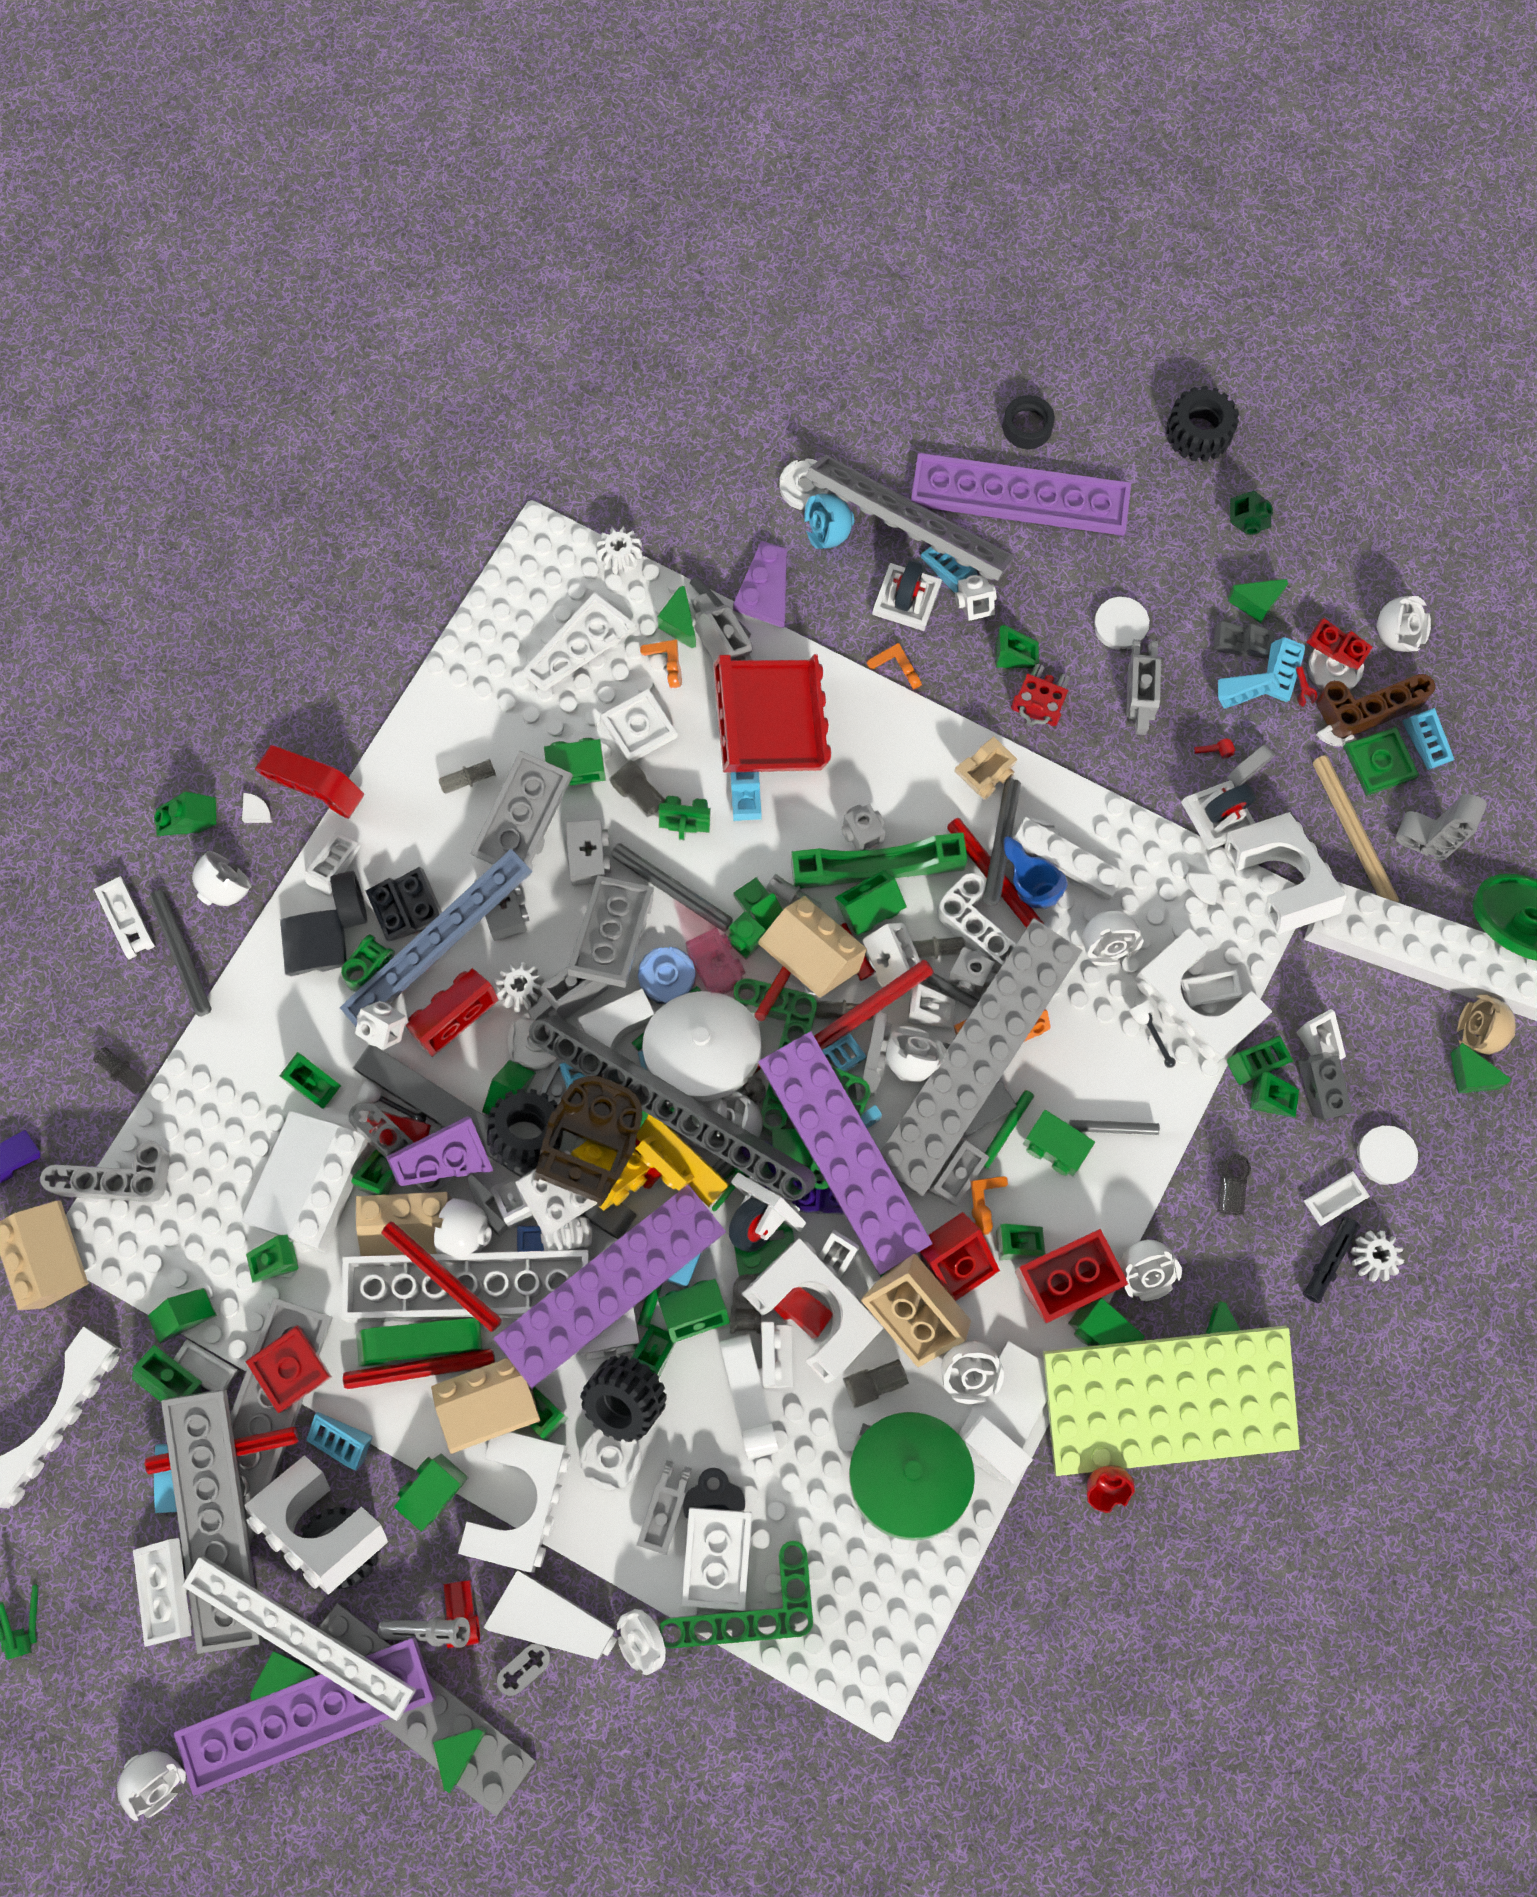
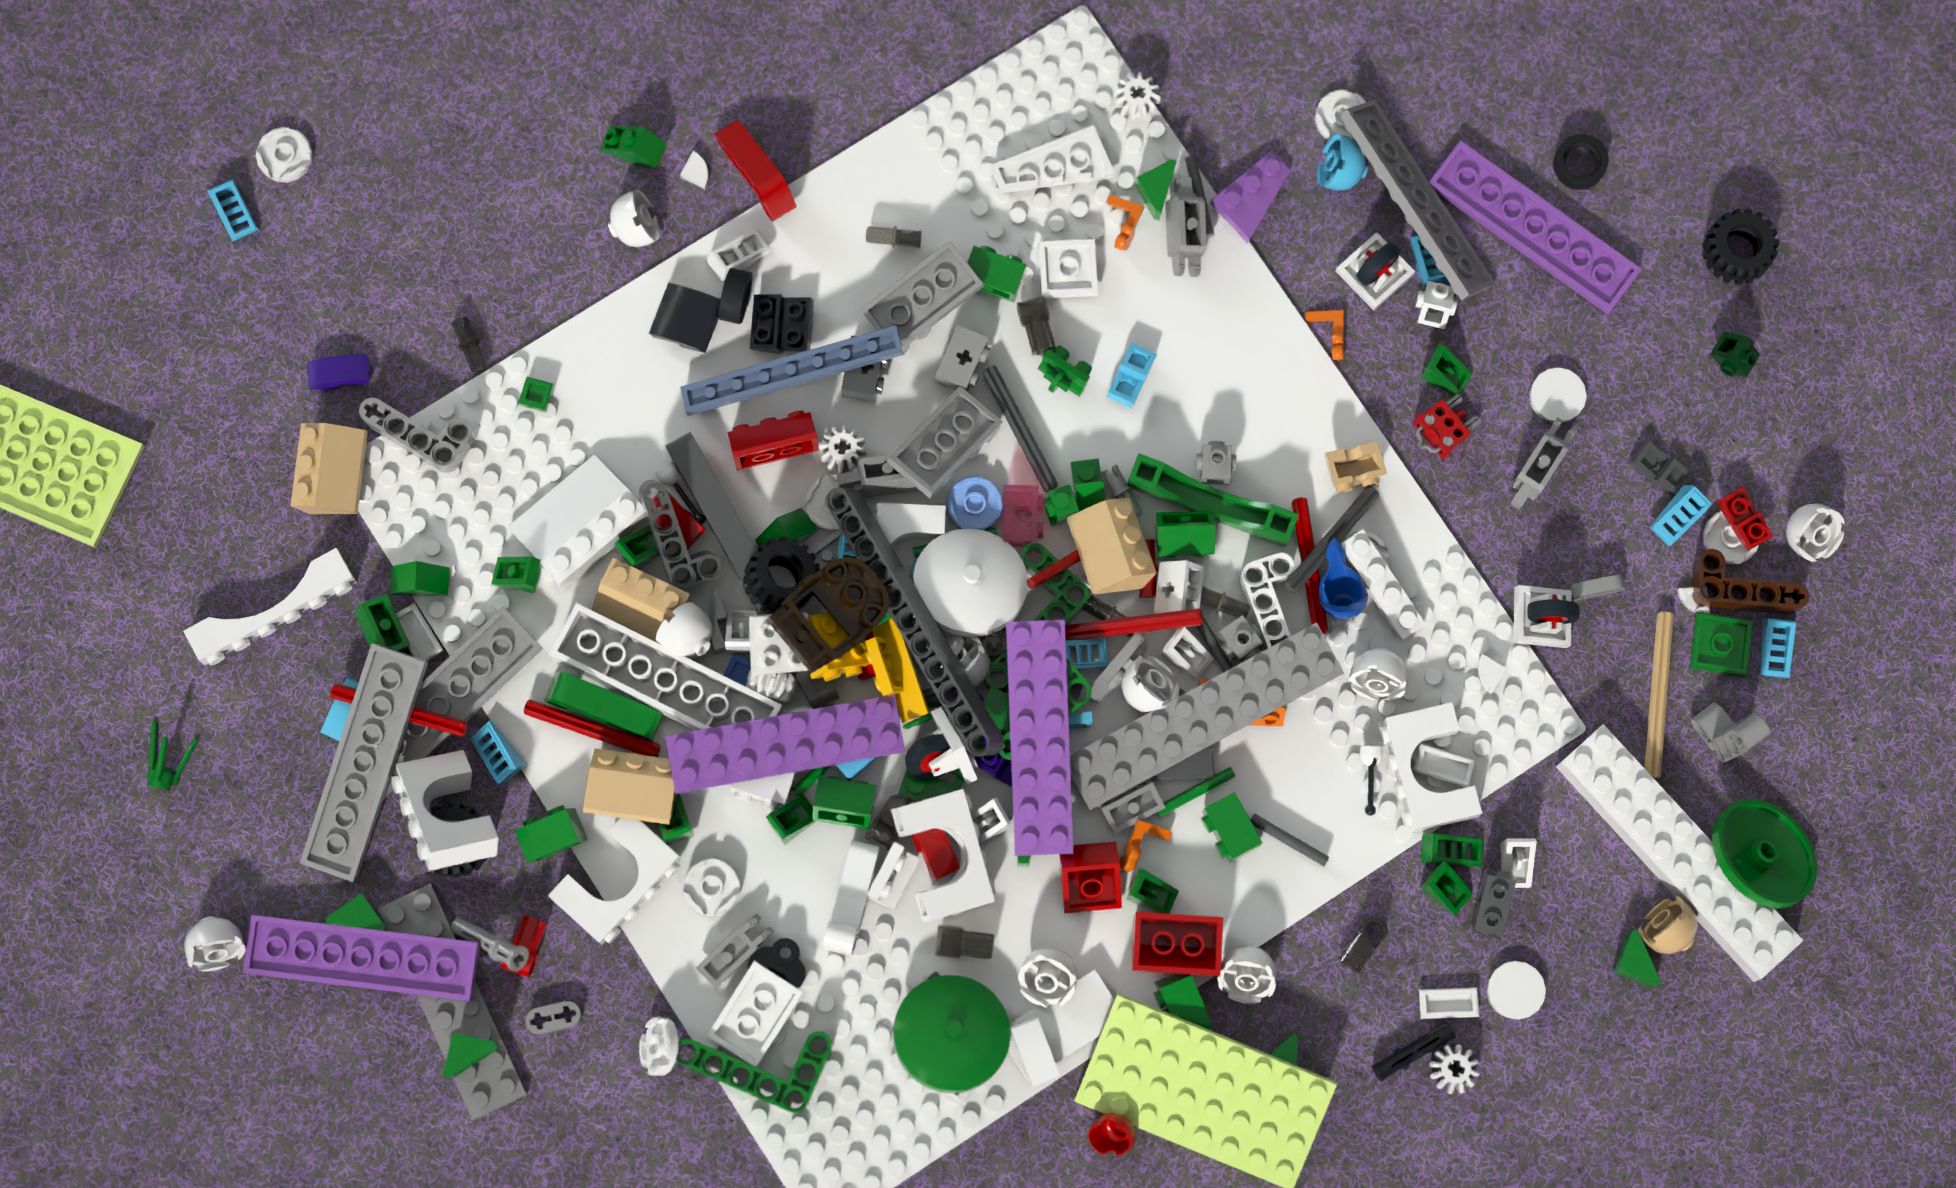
camera: 25 degrees right, 5 degrees up
(124, 917) = (537, 209): white plate -> none
(161, 1592) = (296, 798): white plate -> none
(180, 953) = (569, 267): dark grey axle -> none
(207, 1084) = (536, 394): none -> green tile
(288, 1369) = (486, 672): red tile -> none
(299, 1638) = (388, 893): white plate -> none
(309, 1080) = (623, 438): green slope -> none
(369, 958) = (723, 357): green piece -> none
(380, 1025) = (706, 421): white brick -> none
(441, 1276) = (649, 662): red axle -> none
(443, 1154) = (701, 560): medium lavender wing -> none
(547, 1618) = (591, 985): white slope -> none
(623, 1398) = (747, 843): black tyre -> none
(771, 715) = (1189, 320): red panel -> none
(917, 1311) = (1030, 902): tan slope -> none
(1224, 746) = (1585, 557): red hand -> none
(1243, 688) = (1628, 513): medium azure slope -> none
(1258, 597) = (1696, 437): green slope -> none
(1285, 841) = (1584, 670): white arch -> none
(1305, 689) = (1690, 540): red hand -> none

